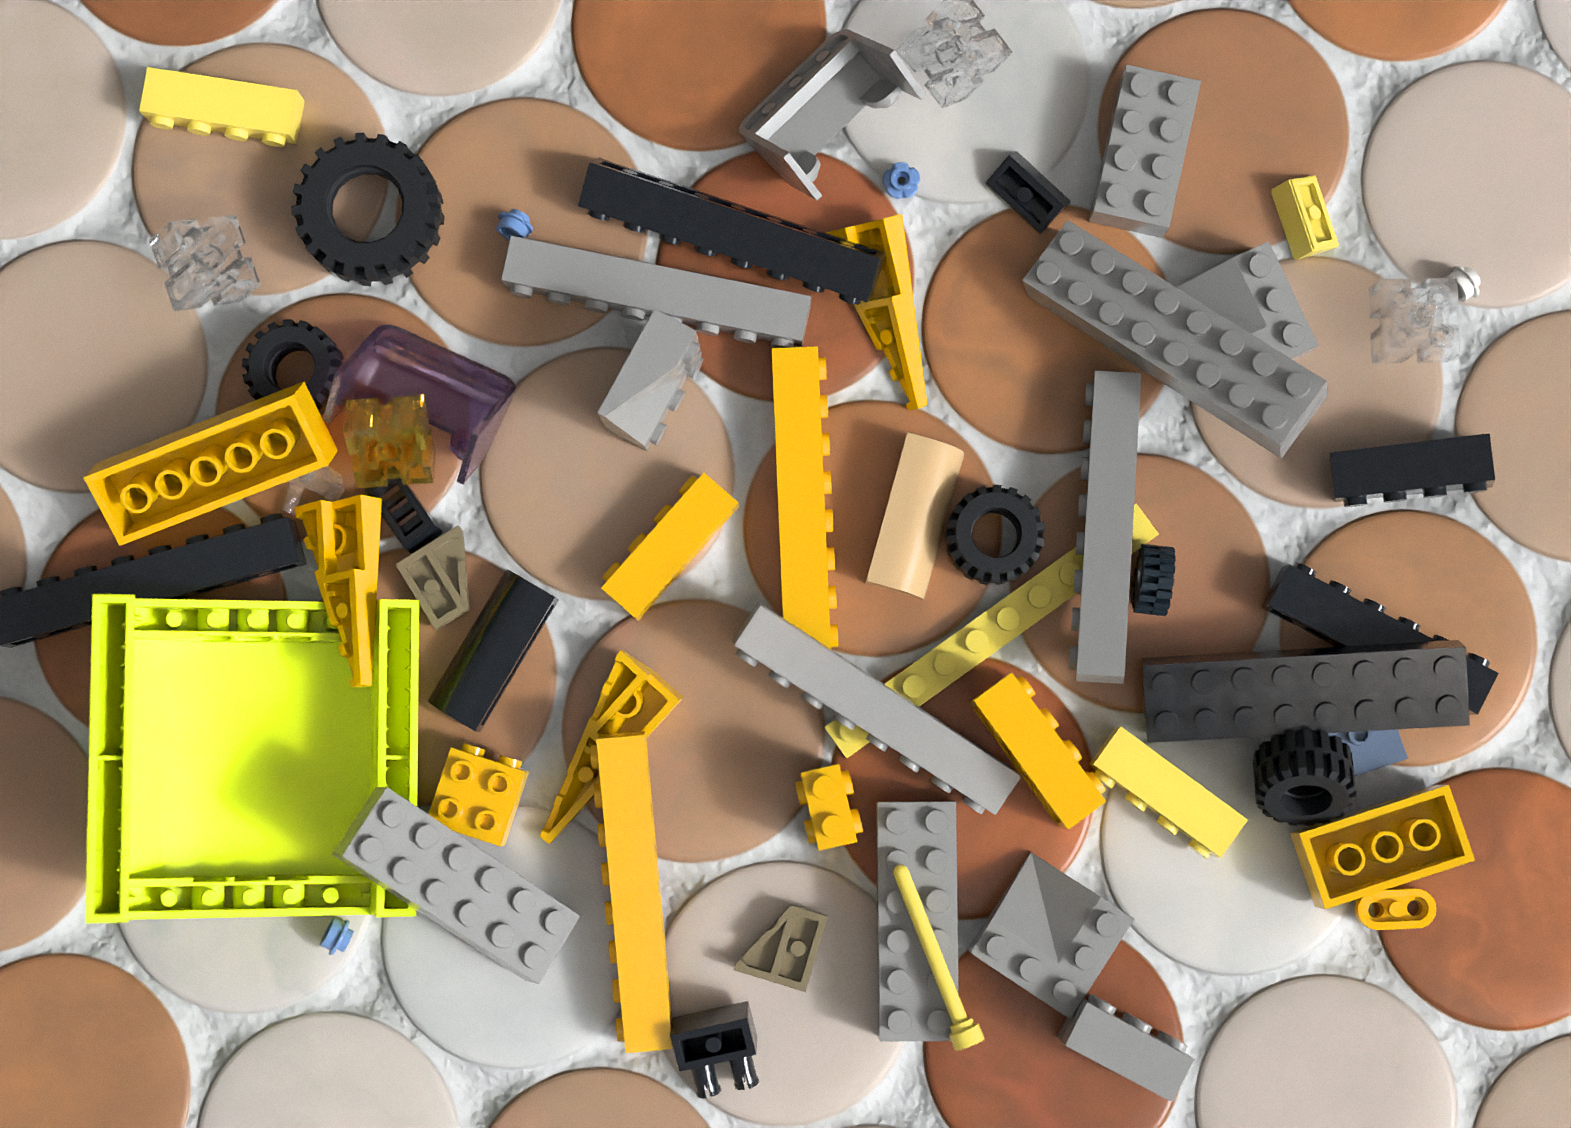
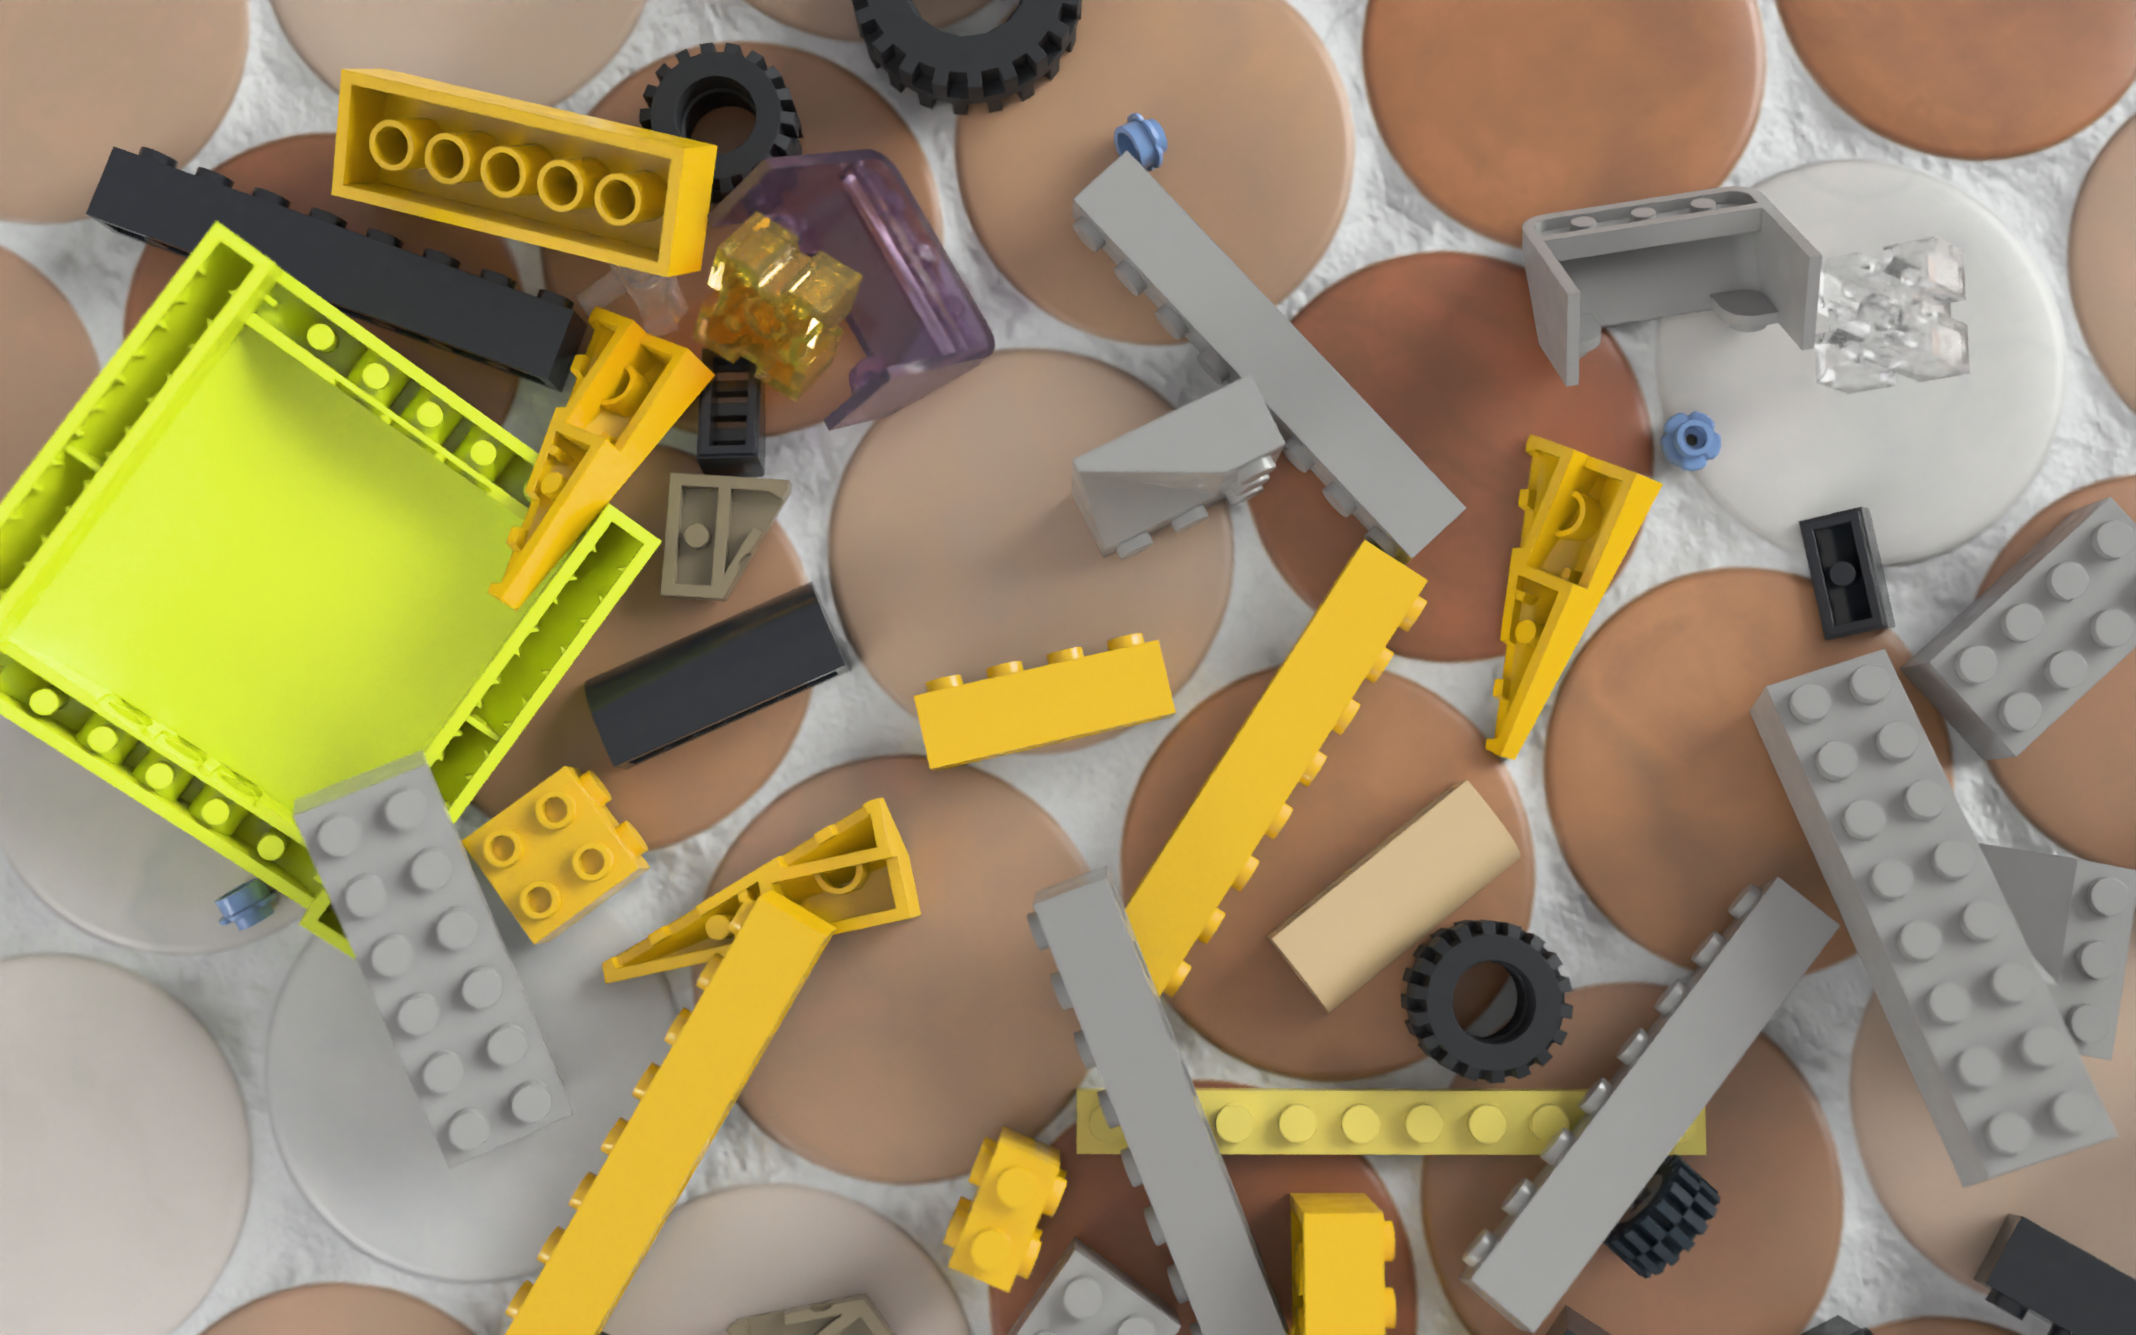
camera: 30 degrees right, 0 degrees up
(731, 230) = (1422, 348): black brick -> none

